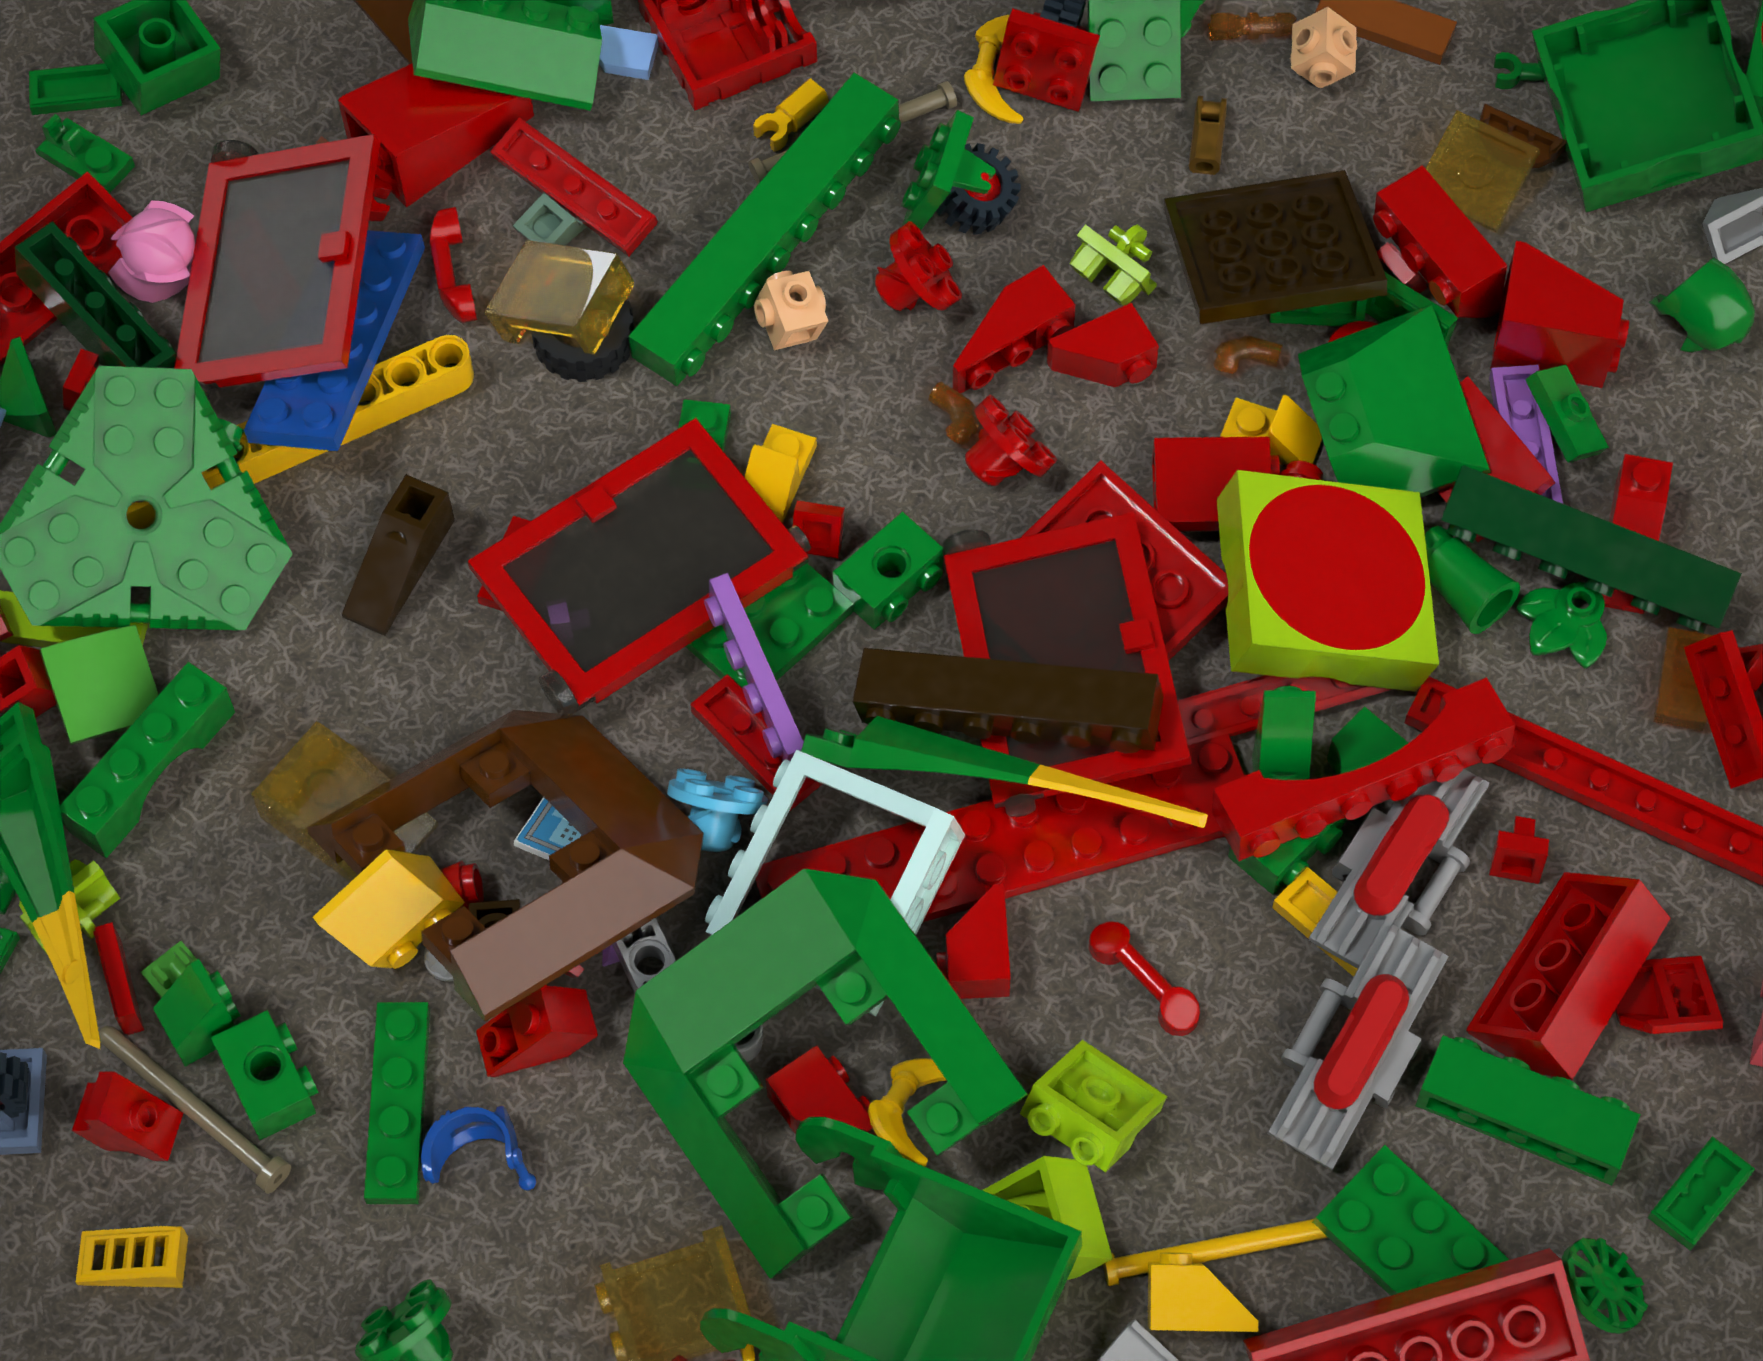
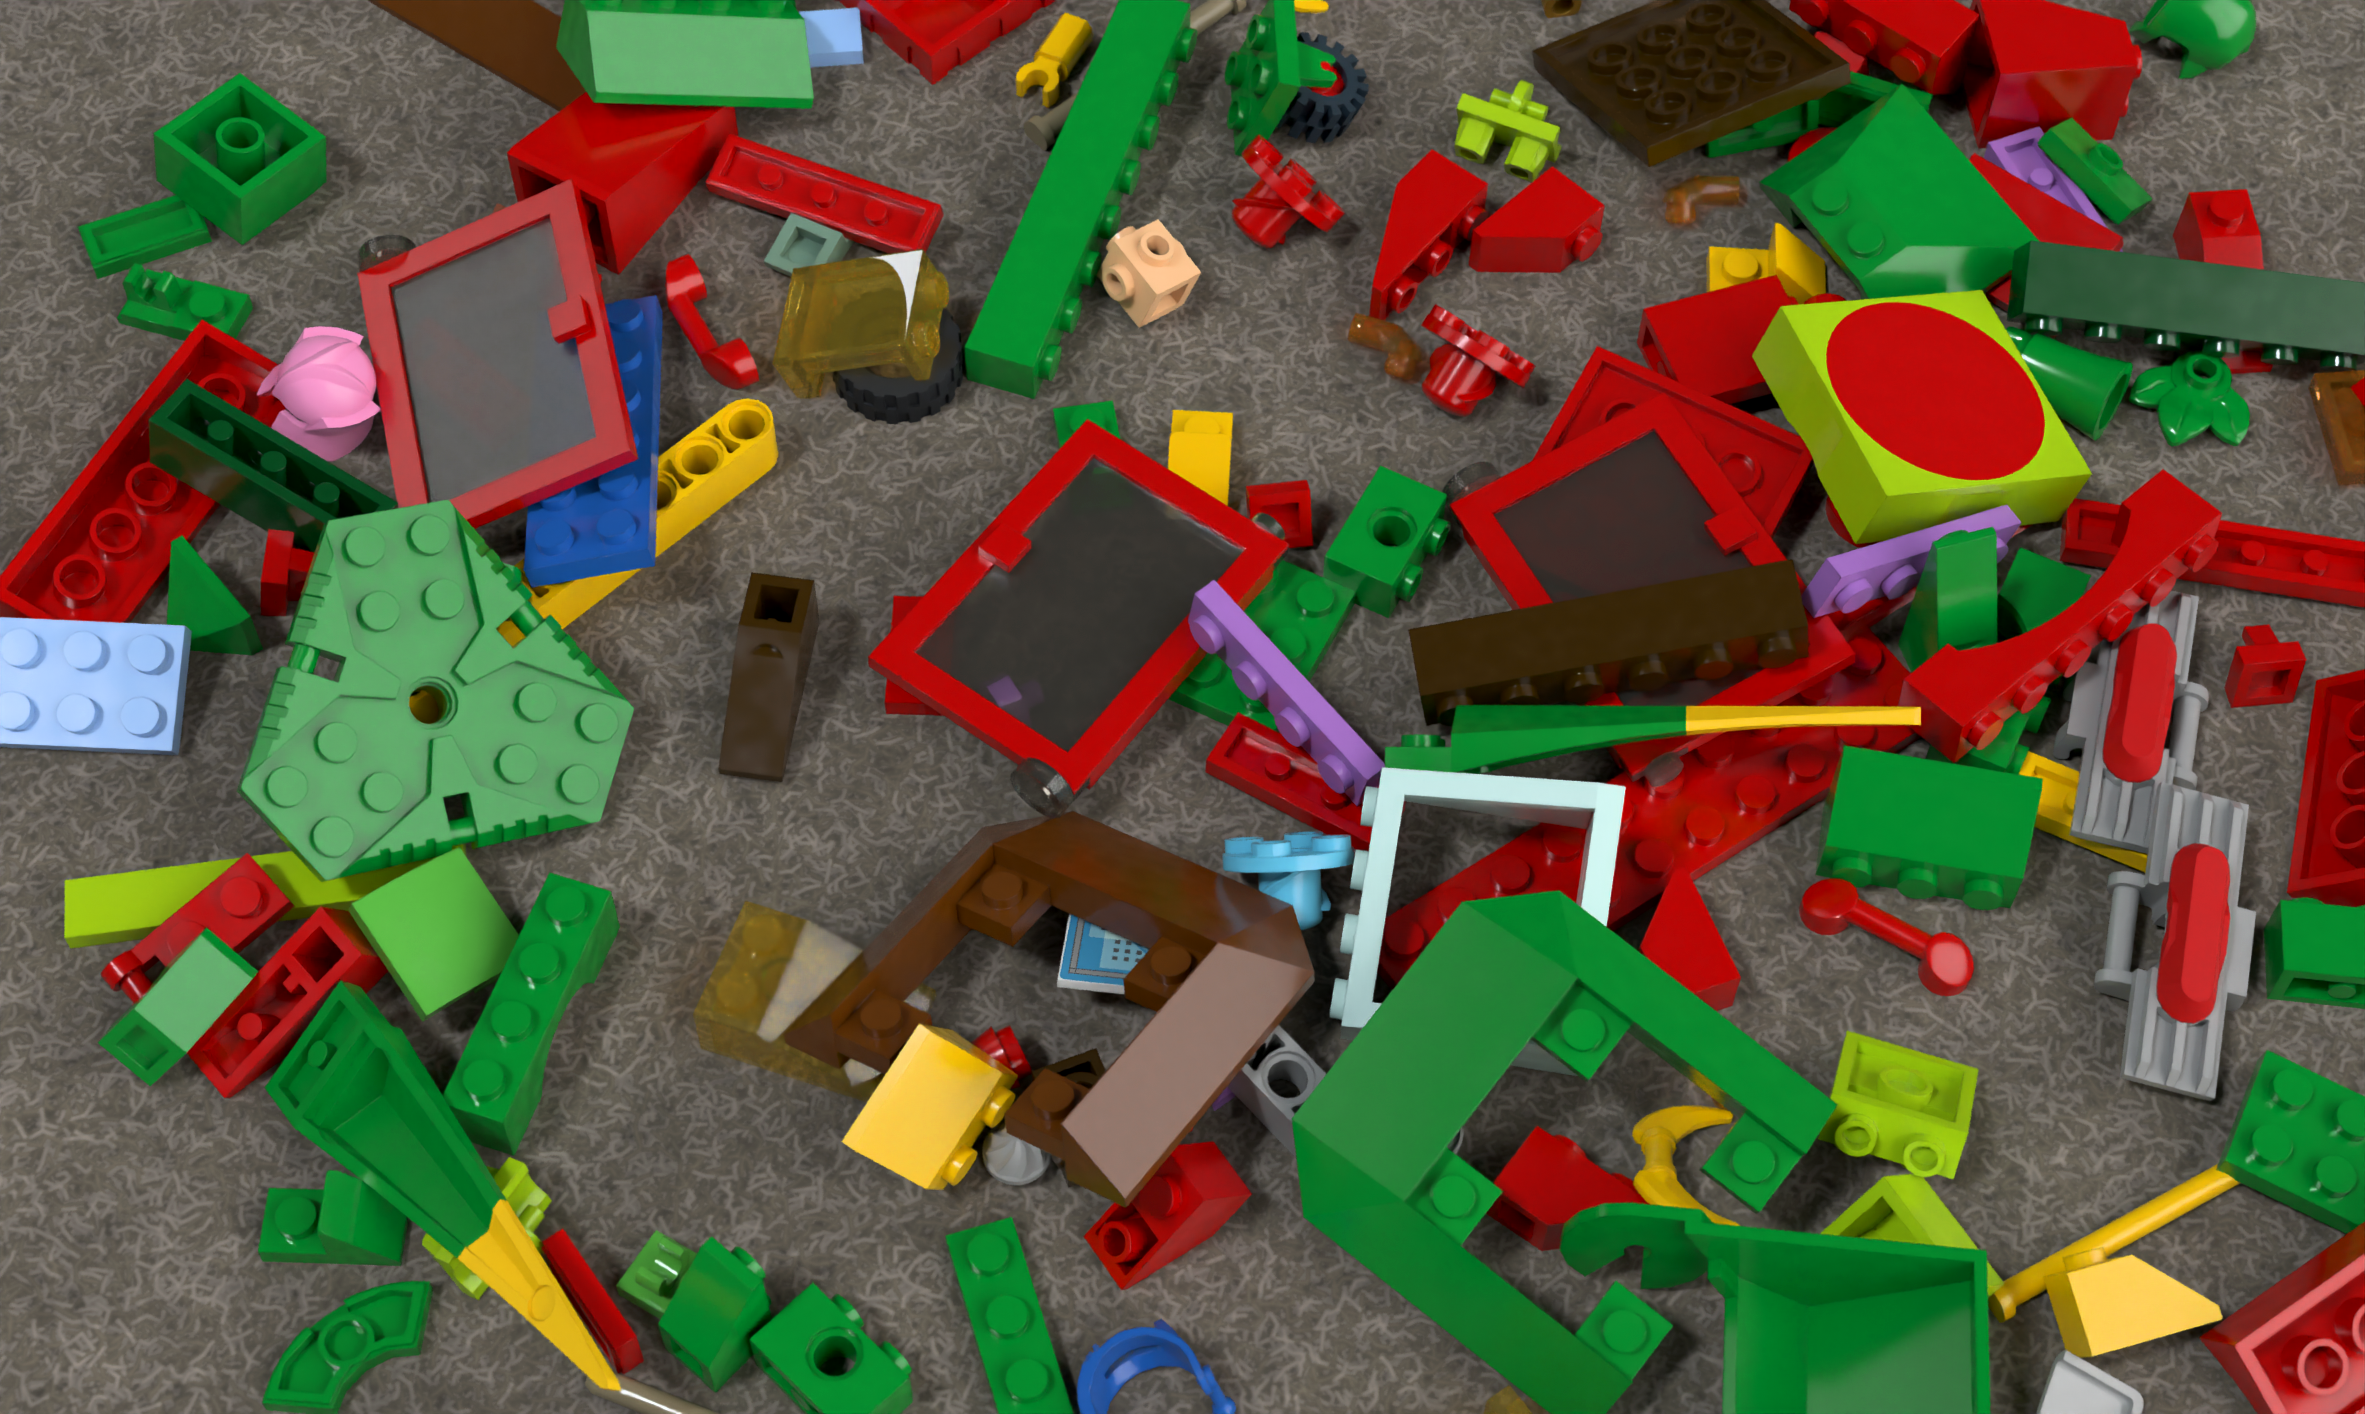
camera: 20 degrees left, 5 degrees down
(1198, 906) = (1928, 827): none -> green slope
(1242, 697) = (1893, 565): none -> medium lavender plate

